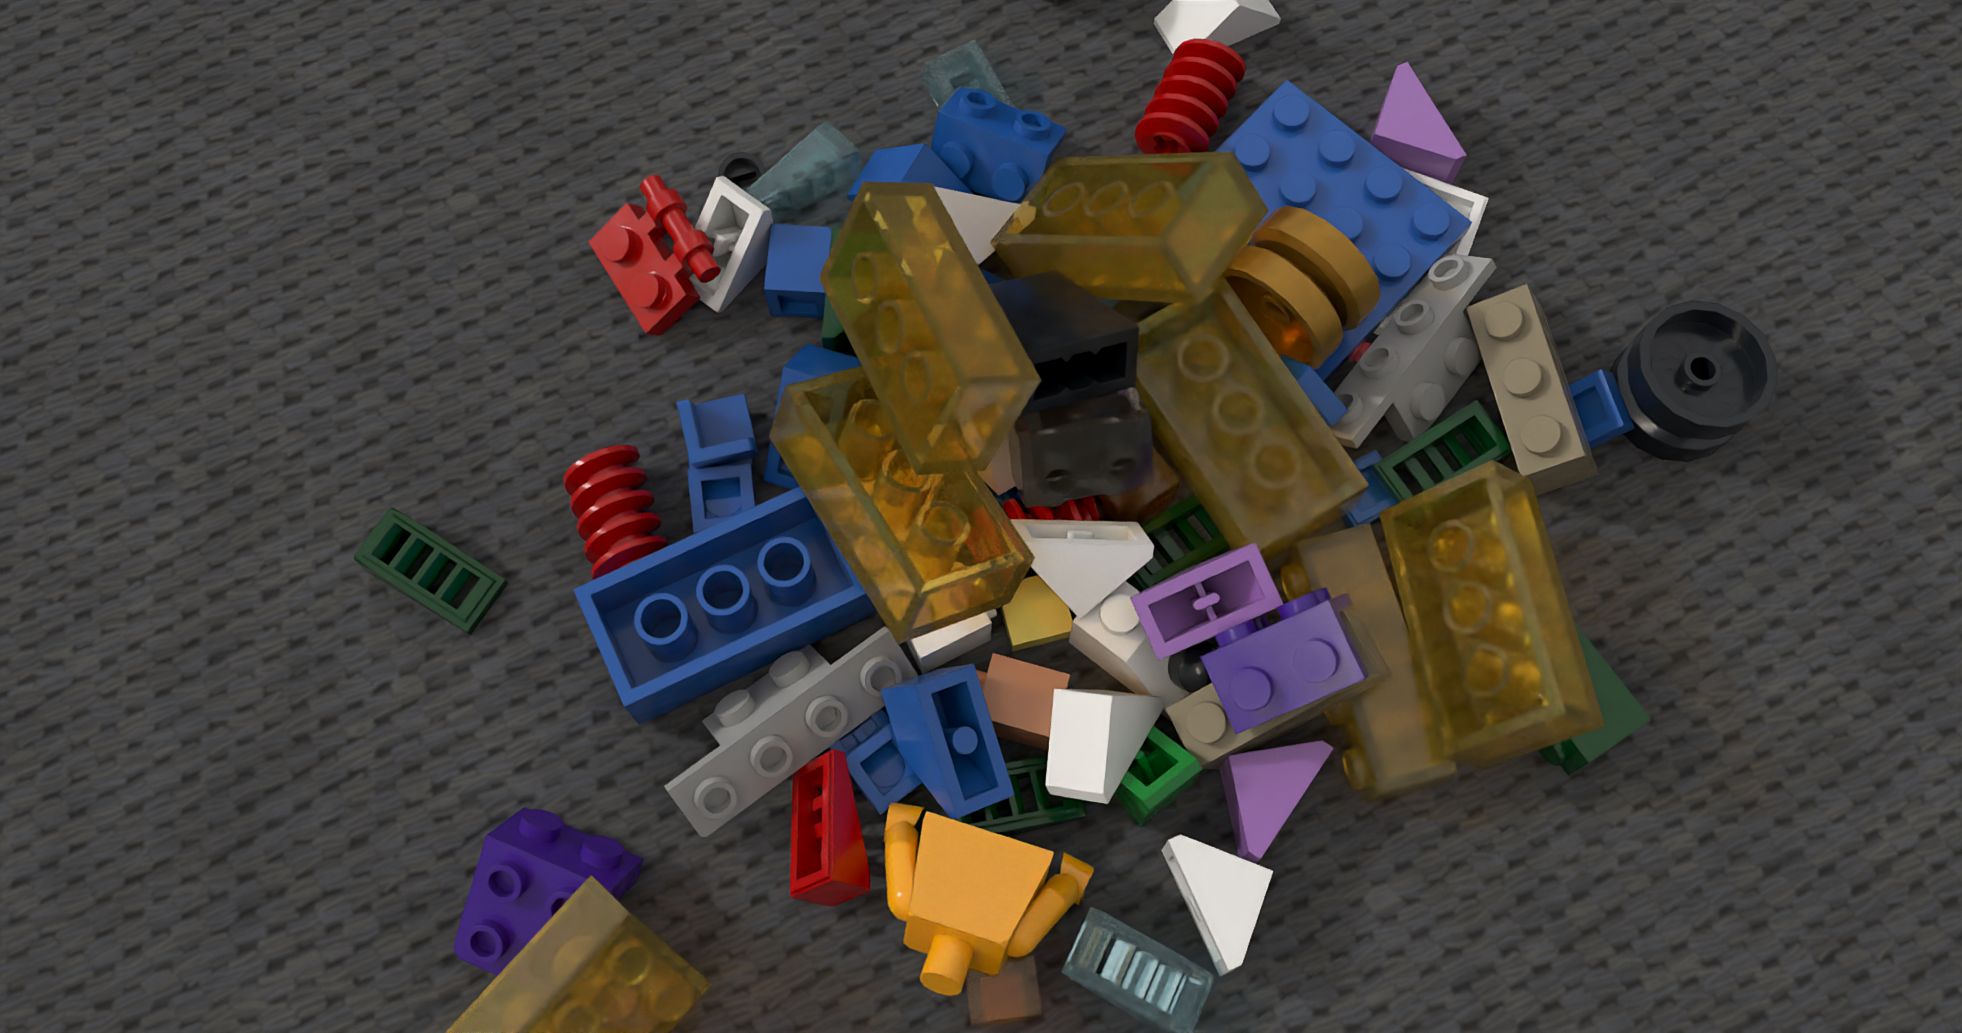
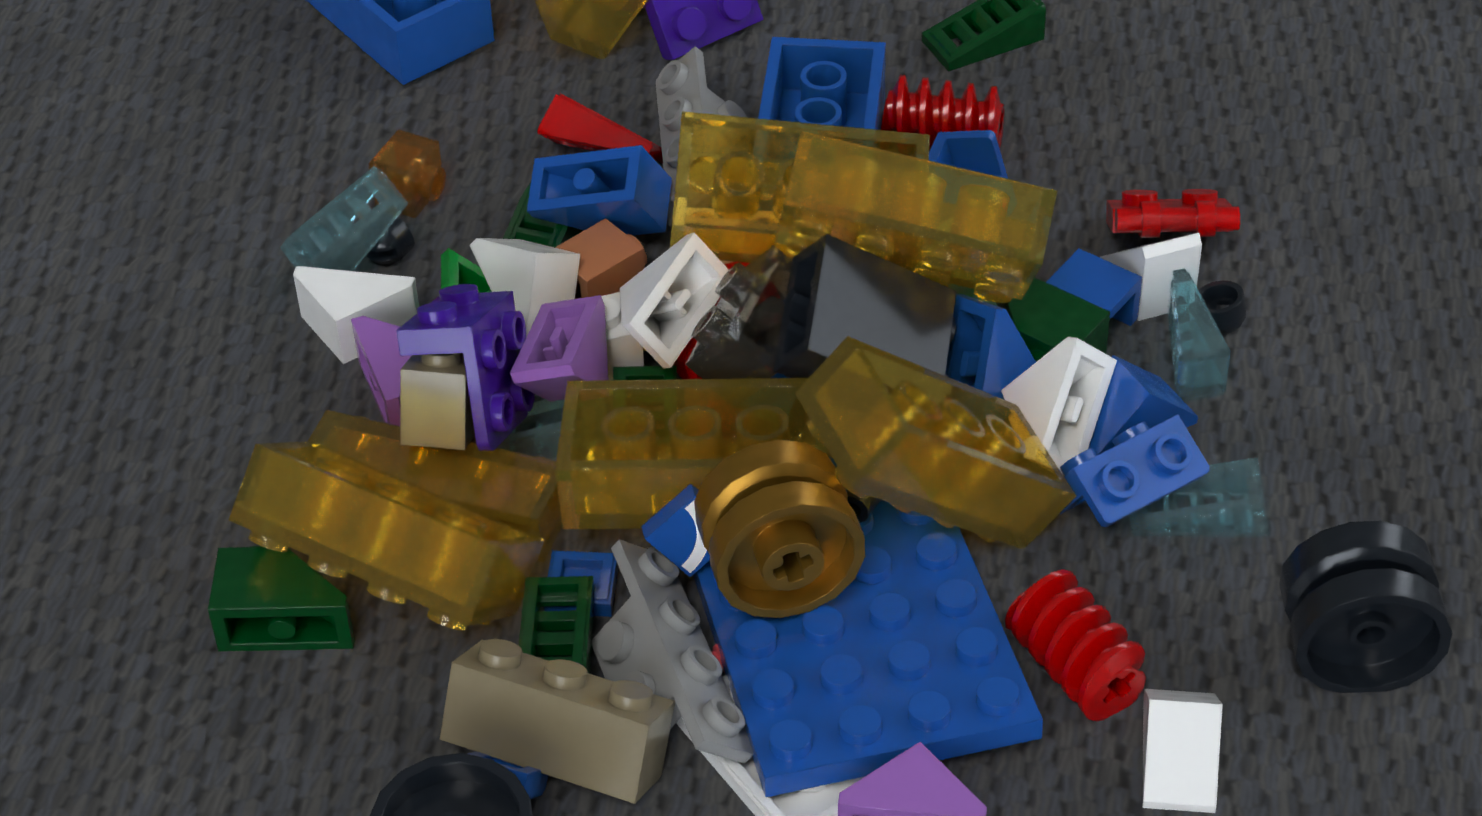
camera: 125 degrees right, 25 degrees down
(971, 894) = (471, 155): light orange torso -> none

